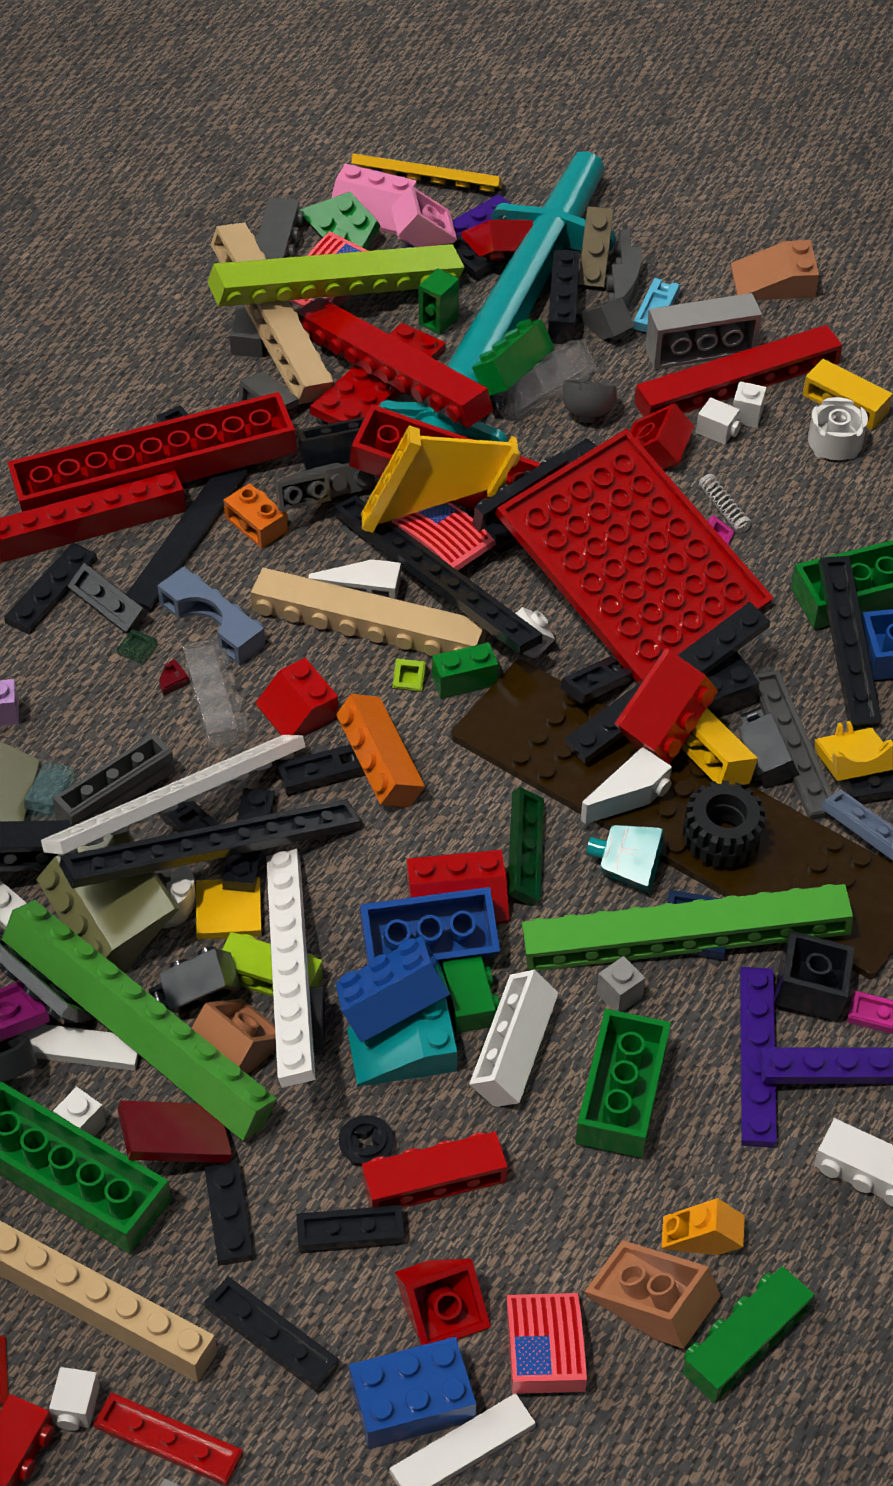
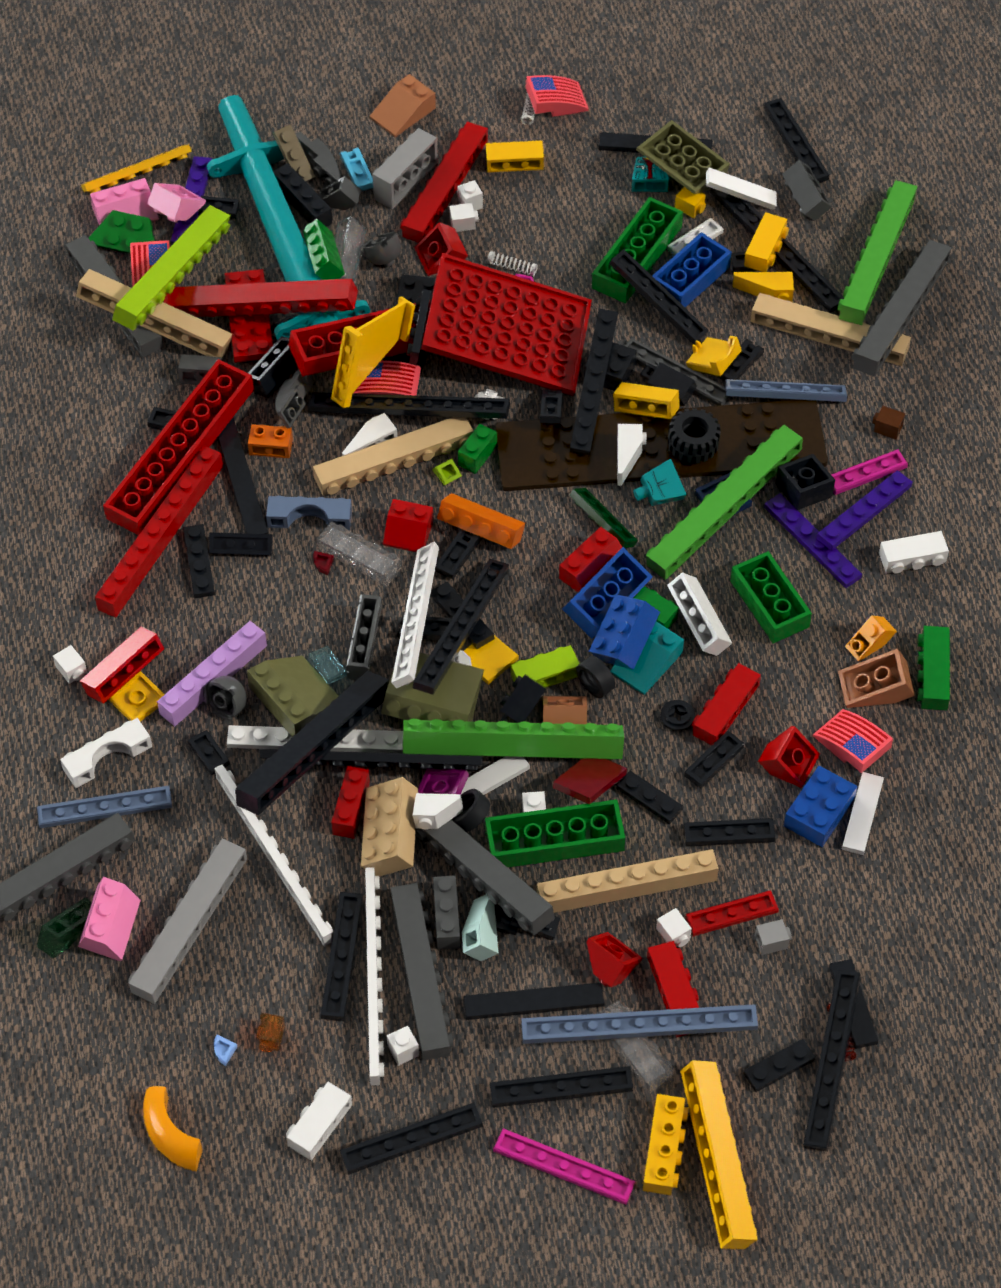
camera: 40 degrees left, 5 degrees up
(137, 646) = (284, 559): clear green tile -> none
(290, 970) = (565, 657): white plate -> none
(438, 301) = (239, 246): green brick -> none
(497, 237) = (231, 185): red slope -> none
(620, 985) = (721, 552): light grey brick -> none
(666, 706) = (614, 393): red slope -> none
(837, 429) = (532, 180): white brick -> none

